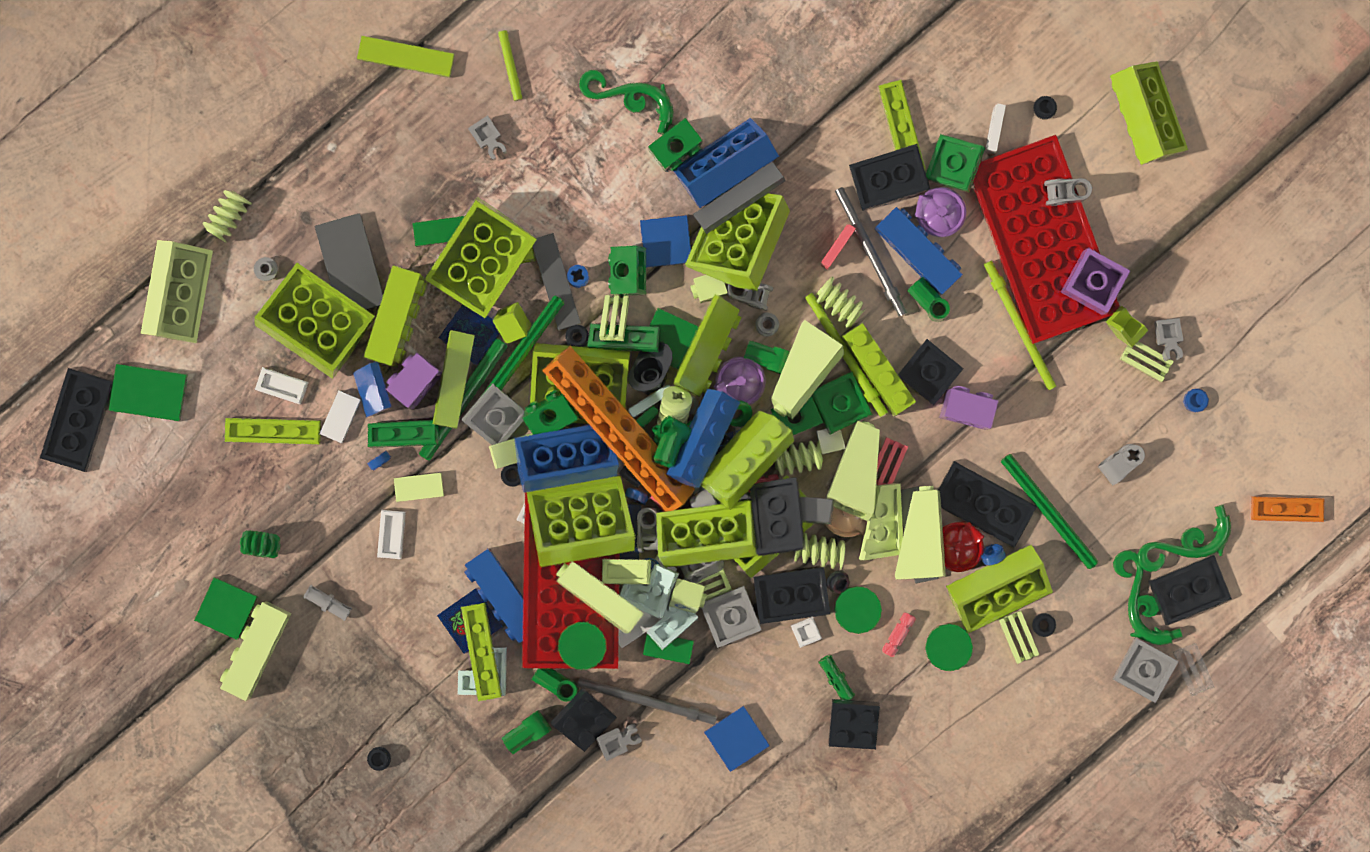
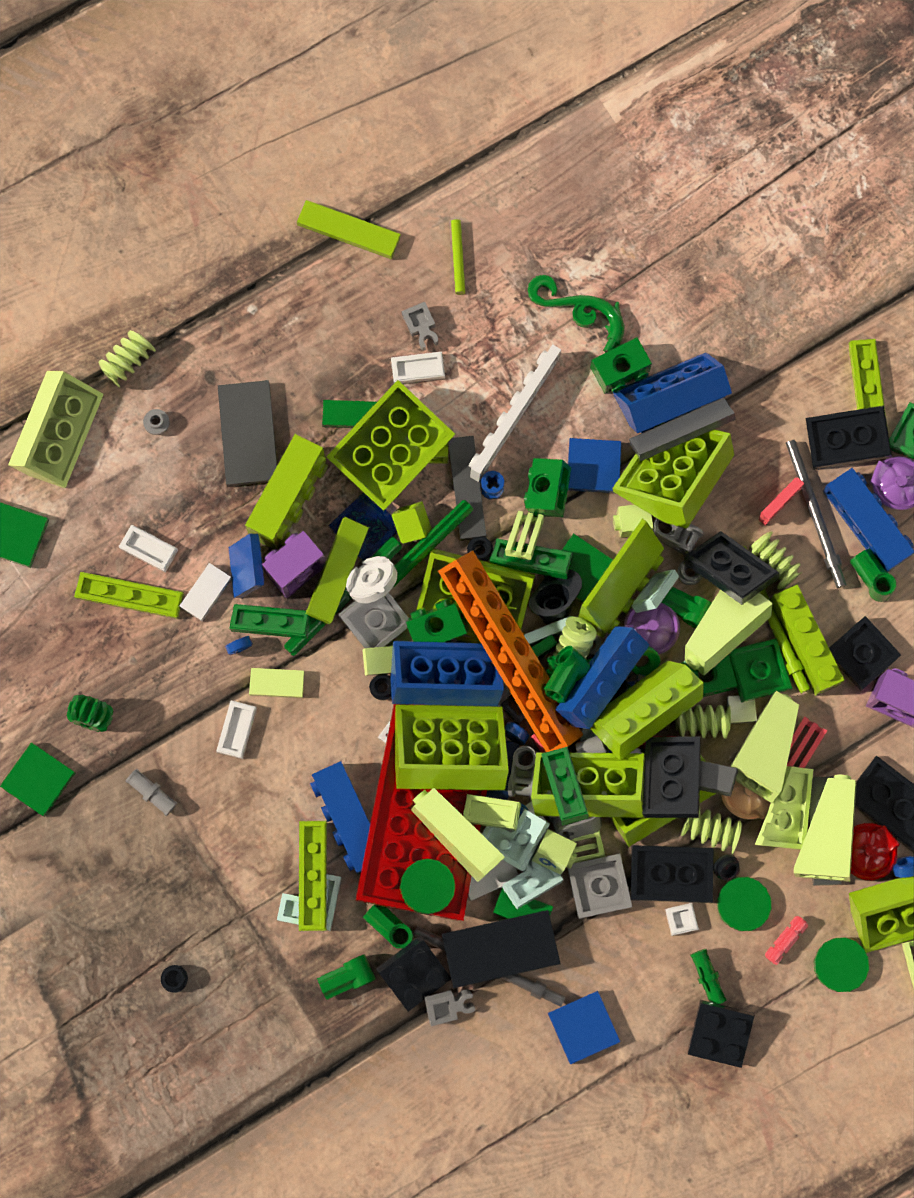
camera: 10 degrees right, 10 degrees down
(255, 650) = (60, 831): yellowish green brick -> none
(314, 320) = (197, 483): lime slope -> none
(453, 619) = (287, 837): clear blue tile -> none
(485, 384) = (371, 580): none -> white tile
(492, 177) = (418, 367): none -> white tile
(590, 197) = (508, 421): none -> white plate
(654, 686) = (501, 949): none -> black tile
(685, 541) = (565, 786): none -> green tile
(738, 349) = (655, 591): none -> light aqua tile
(802, 317) = (731, 567): none -> black tile

